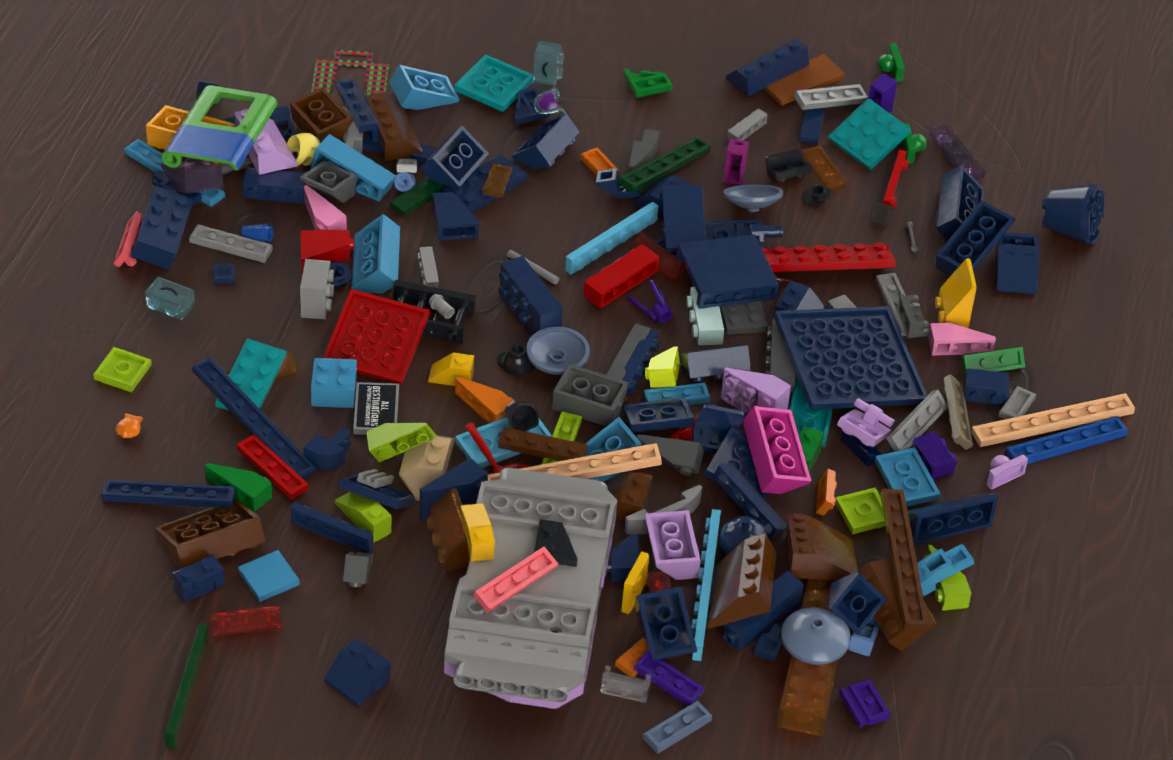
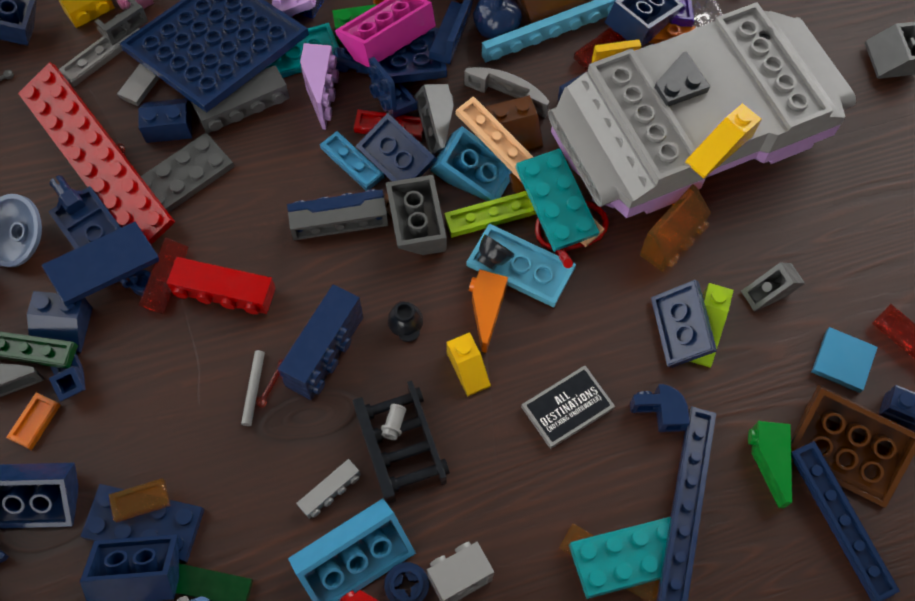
camera: 120 degrees left, 20 degrees up
(272, 467) = (724, 448): red plate -> none
(332, 528) = (752, 343): dark blue plate -> none
(334, 383) = (573, 463): dark azure brick -> none
(358, 672) = (876, 212): dark blue slope -> none
(375, 479) = (649, 341): light grey tile -> none
(378, 335) = (483, 461): red plate -> none
(397, 438) = (609, 347): lime slope -> none
(425, 463) = (601, 309): tan wedge -> none
(453, 218) = (228, 517): dark blue slope -> none
(464, 477) = (633, 252): dark blue slope -> none
(515, 579) = (754, 78): coral plate -> none
(533, 460) = (557, 199): none -> teal plate
(540, 445) = (512, 219): reddish brown plate -> none
(556, 348) = (377, 264): sand blue dish -> none
(611, 238) = (153, 328): medium azure plate -> none
(660, 309) = (243, 229): dark purple plant -> none
(664, 369) = (330, 178): neon yellow slope -> none
(674, 544) = (546, 54): lavender slope -> none
(707, 322) = (227, 186): light aqua brick -> none
(714, 361) = (286, 148): slope -> none
(728, 271) = (161, 180): dark blue panel -> none

